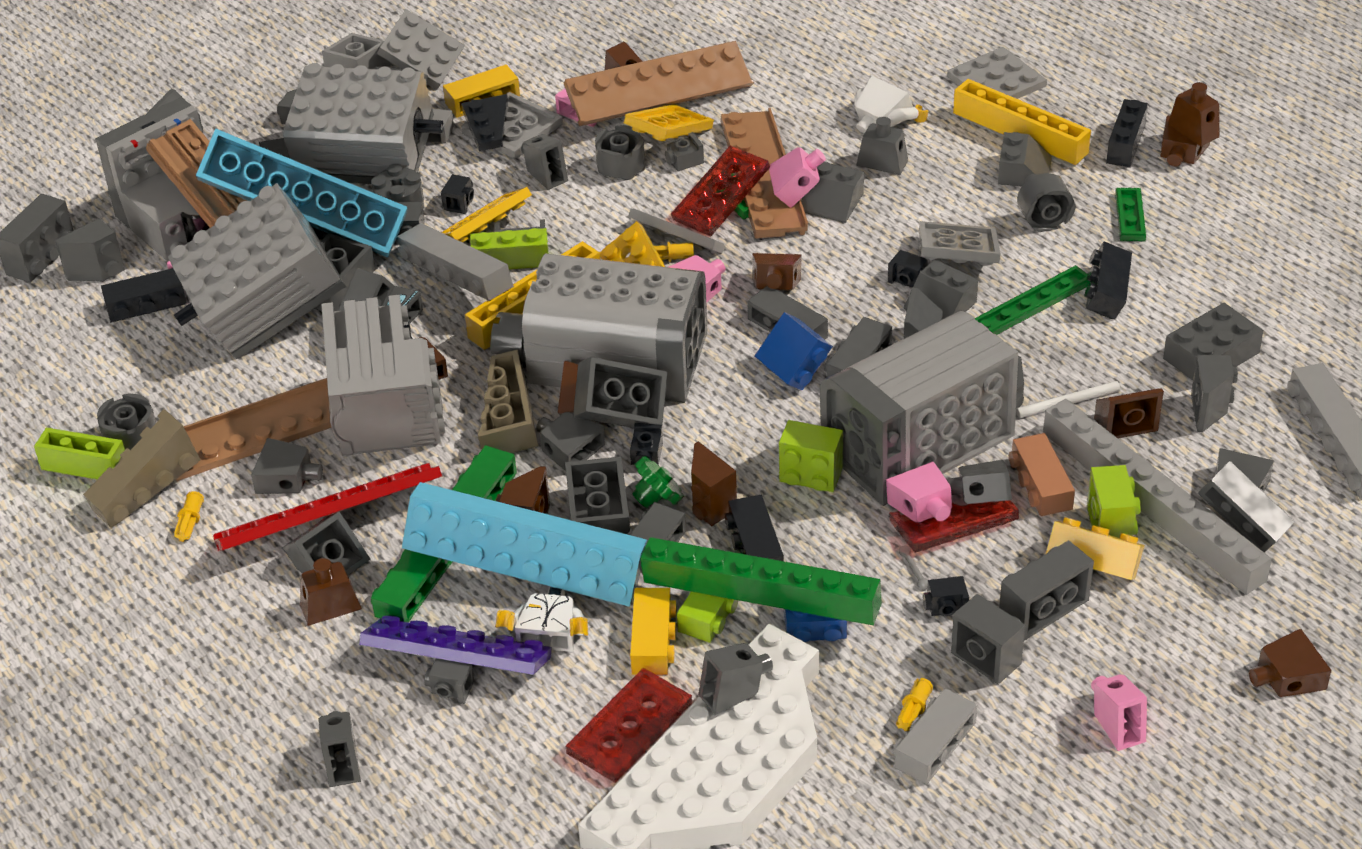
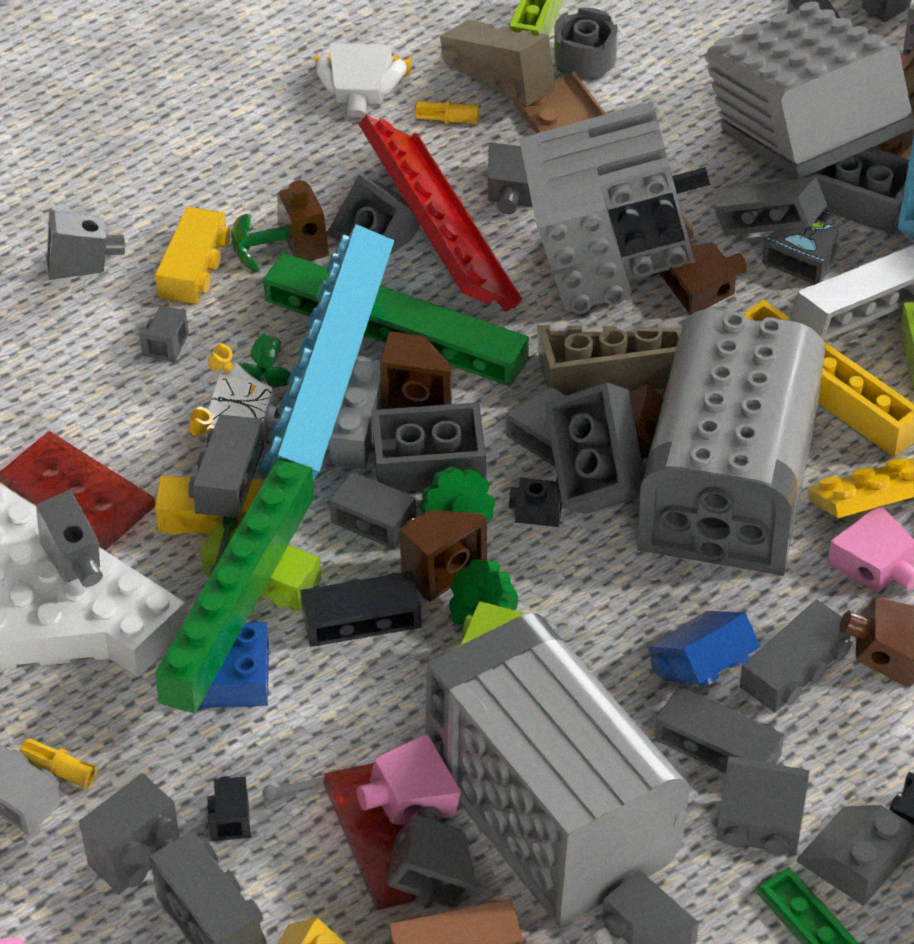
camera: 90 degrees right, 5 degrees up
(134, 571) = (360, 74): none -> white torso
(340, 627) = (243, 241): none -> green plant
(353, 670) = (192, 255): none -> yellow brick
(457, 646) = (214, 312): dark purple plate -> none
(494, 603) = (264, 354): none -> green plant
(632, 601) = (227, 466): none -> dark grey brick
(684, 605) = (229, 524): none -> dark green hinge
(753, 463) = (480, 583): none -> green plant

